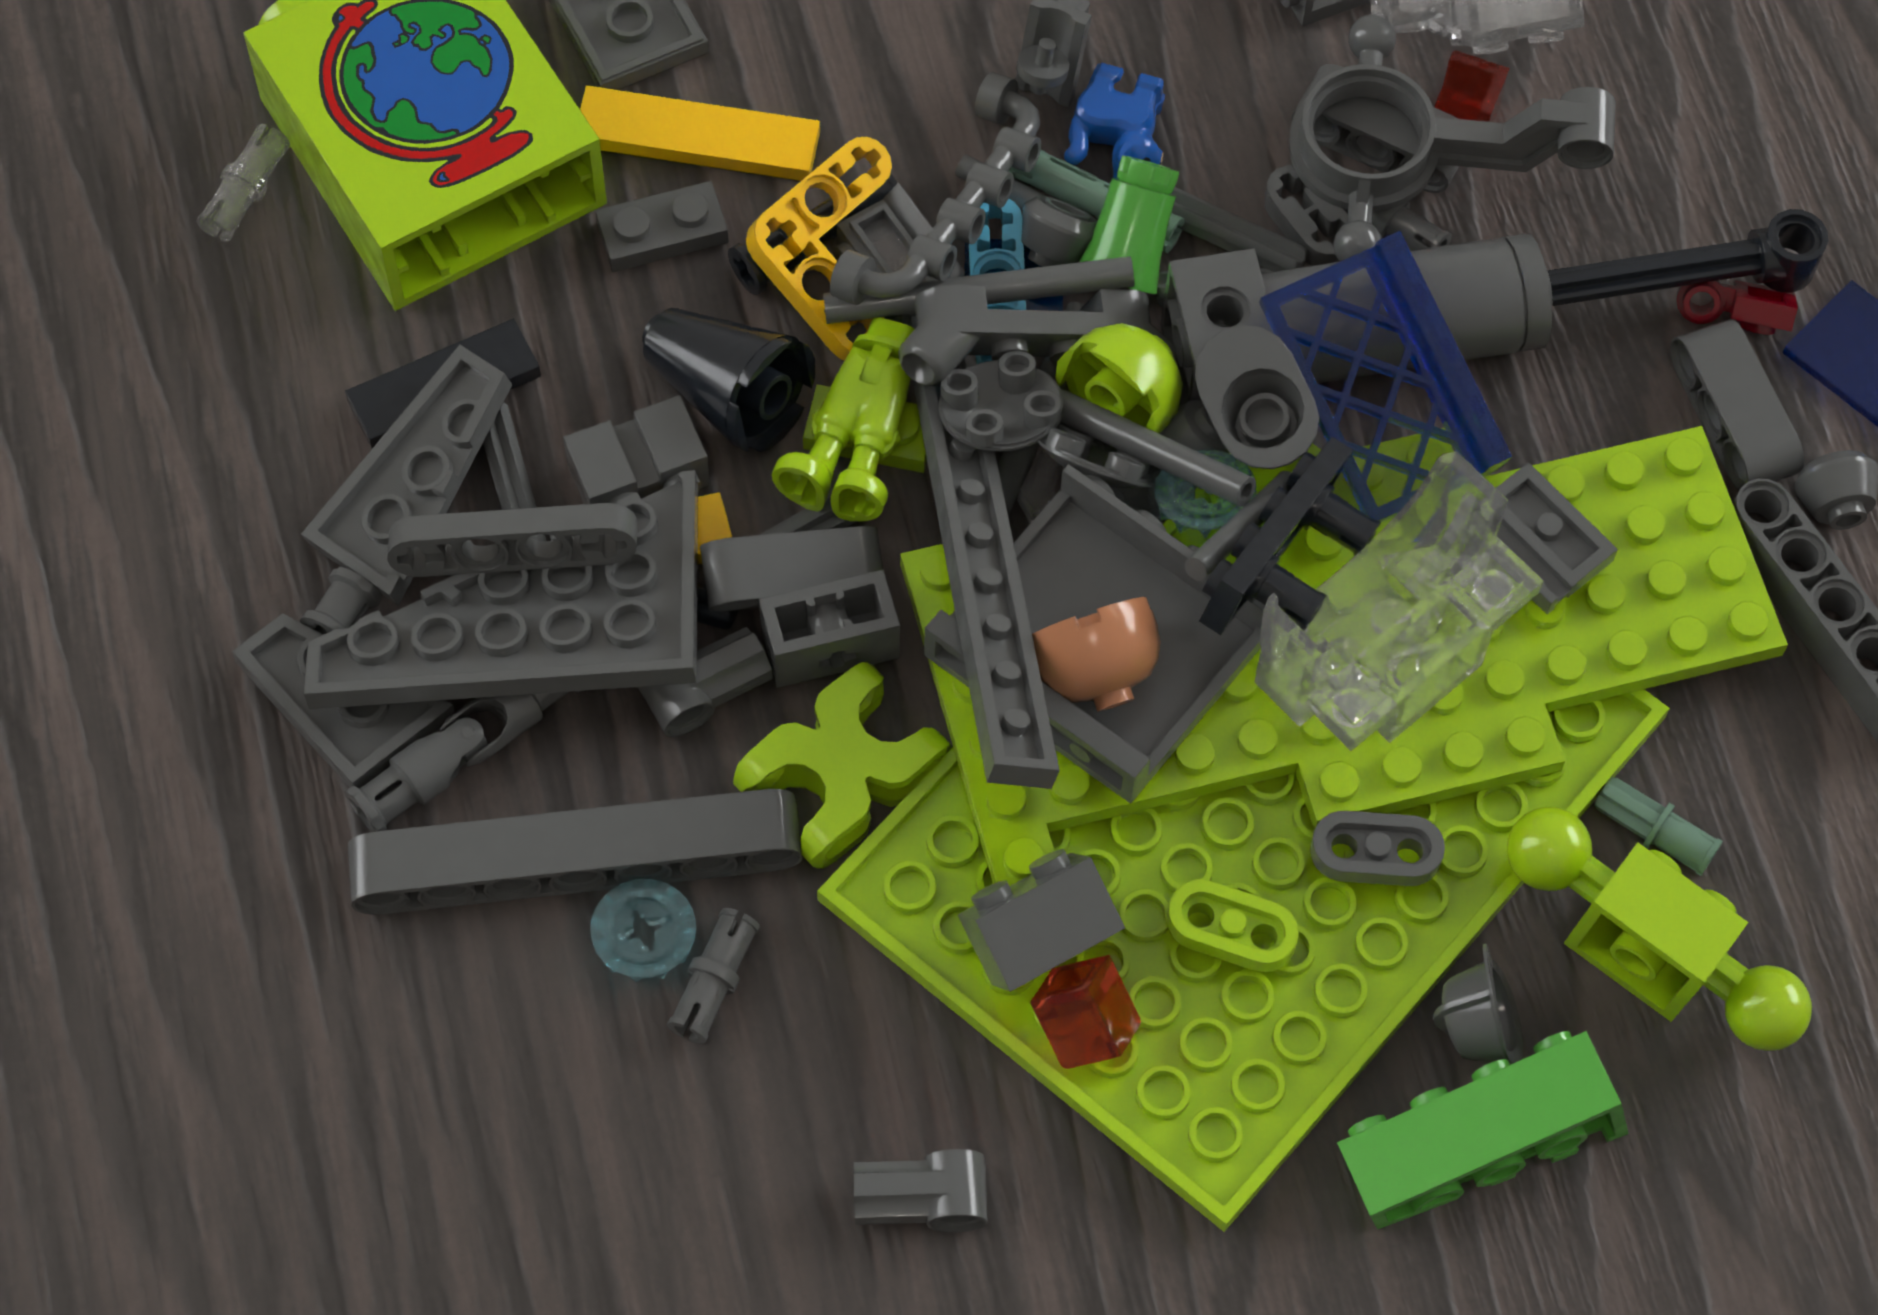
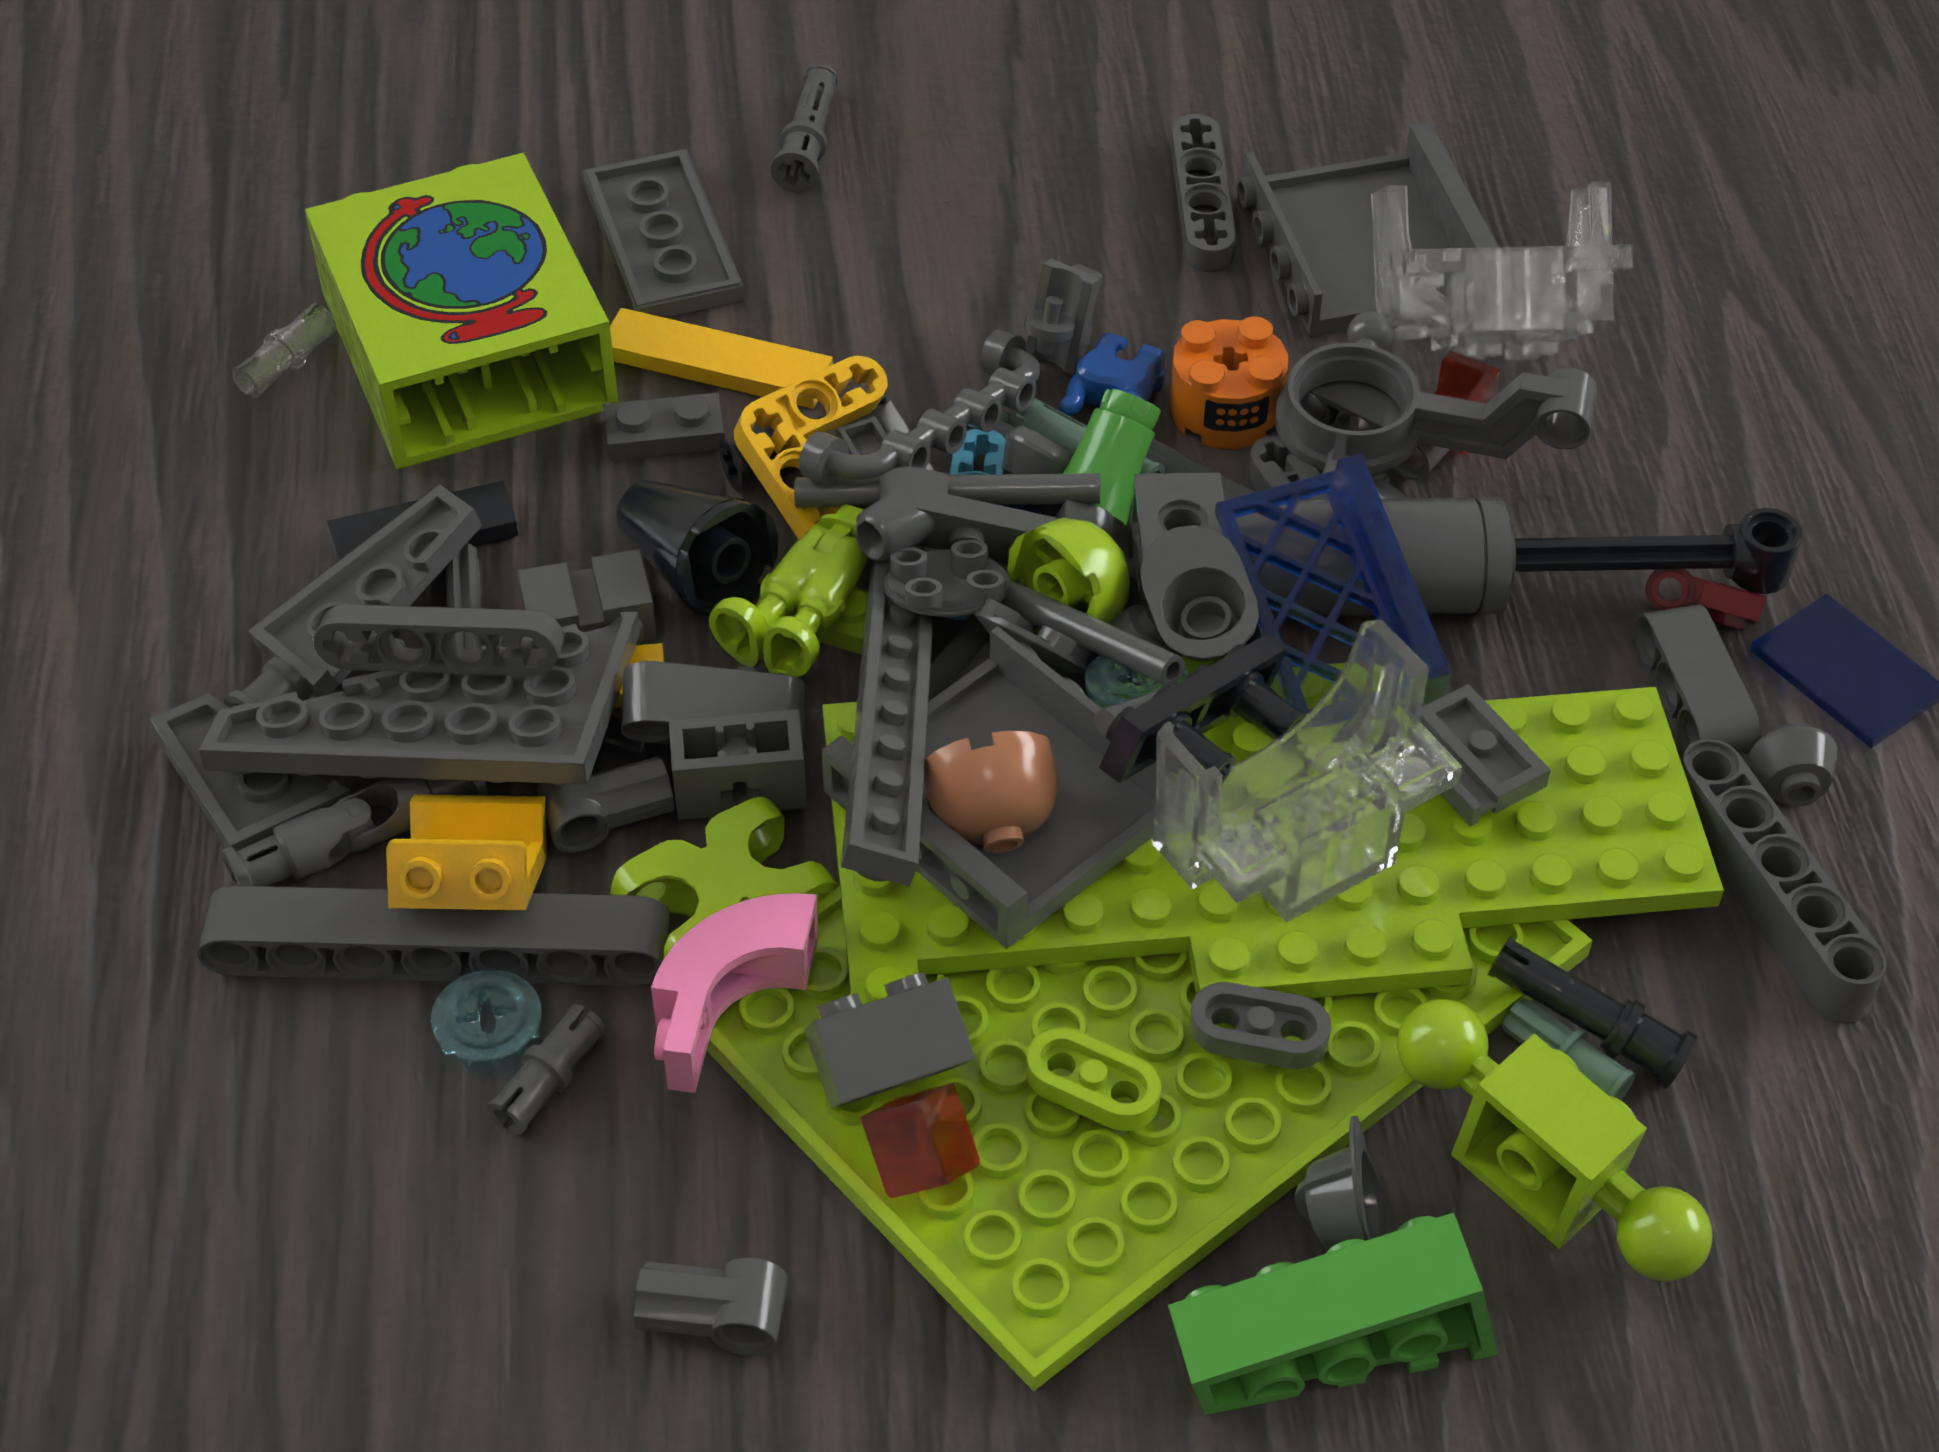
camera: 10 degrees right, 15 degrees down
(593, 767) = (468, 853): none -> yellow panel
(870, 844) = (719, 961): none -> bright pink arch
(1233, 106) = (1227, 380): none -> orange brick
(1705, 796) = (1621, 1027): none -> black pin

